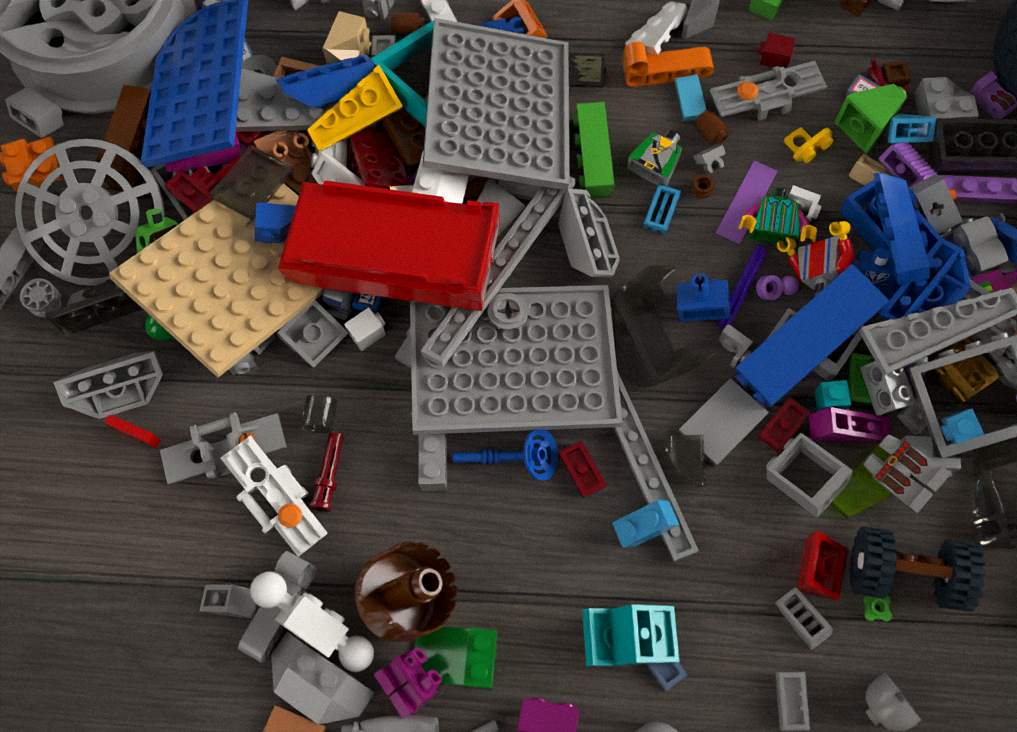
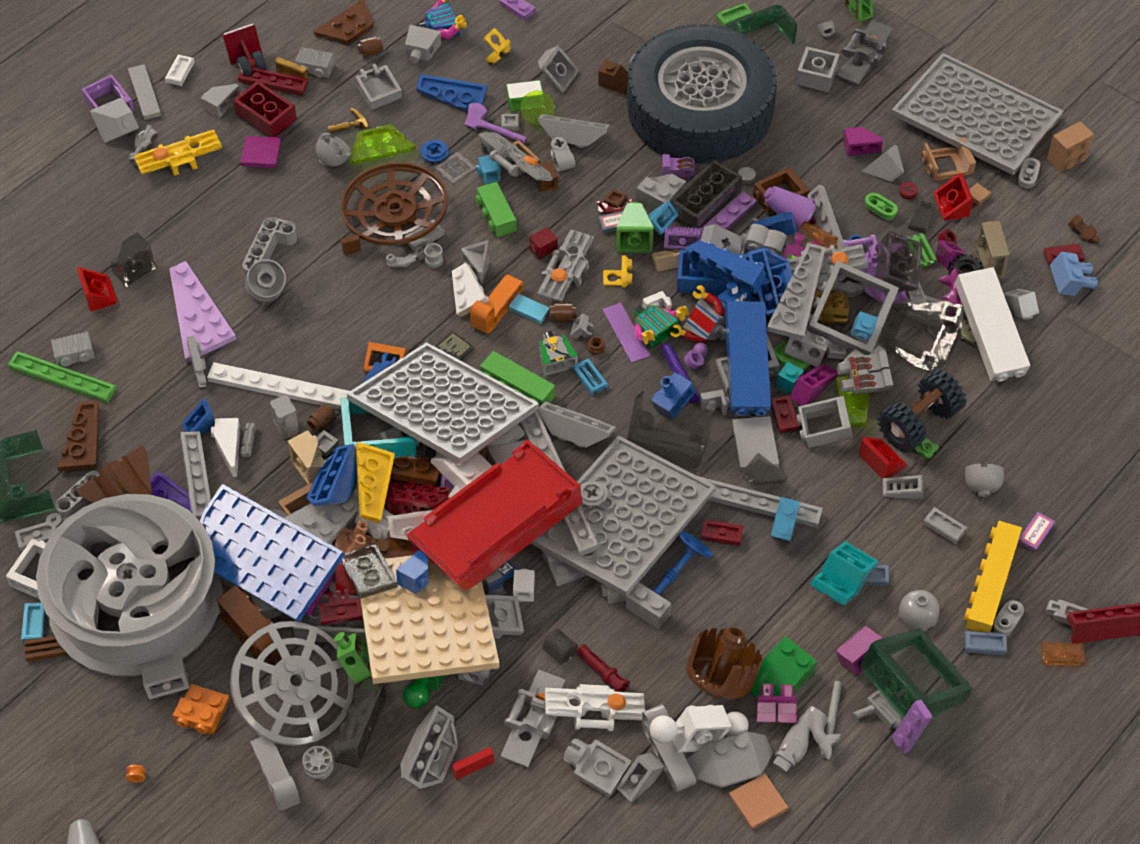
camera: 55 degrees left, 15 degrees down
(212, 548) = (597, 765): none -> light grey plate

